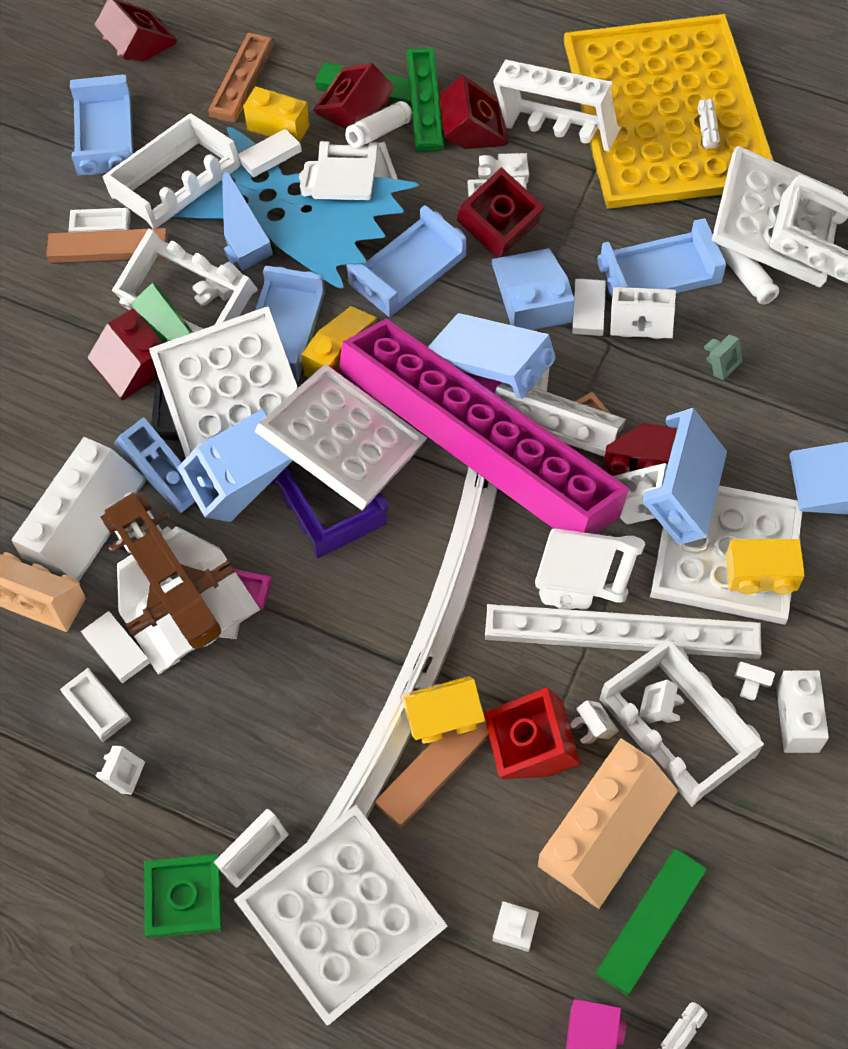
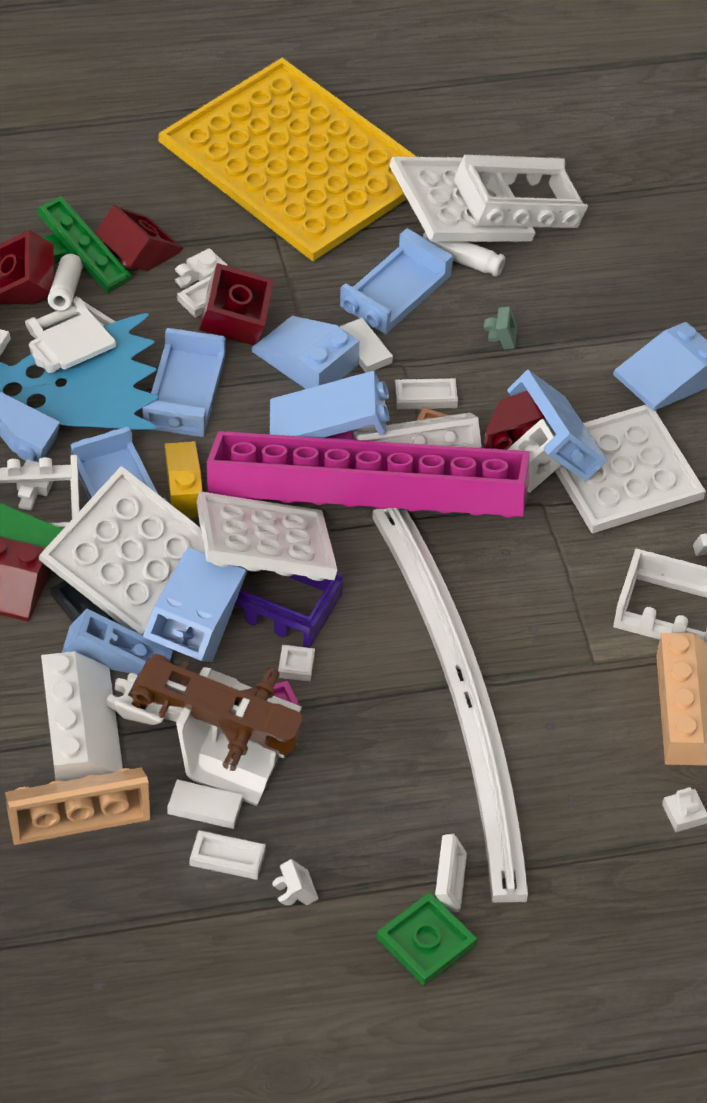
camera: 40 degrees left, 10 degrees down
(294, 564) = (296, 663): none -> white tile
(340, 914) = (560, 871): white plate -> none
(429, 773) = (535, 739): nougat tile -> none
(443, 709) = (515, 688): yellow brick -> none
(531, 736) = (593, 672): red slope -> none
(562, 85) = (210, 174): white window -> none
(578, 565) = (530, 532): white piece -> none
(597, 721) = (628, 638): white tile -> none
(607, 380) = (426, 393): none -> white tile
(622, 631) = (587, 570): white tile -> none
(642, 312) = (417, 325): white brick -> none
(659, 702) = (662, 598): white tile -> none
(708, 123) = (346, 152): white axle -> none
(764, 565) = (662, 459): yellow brick -> none

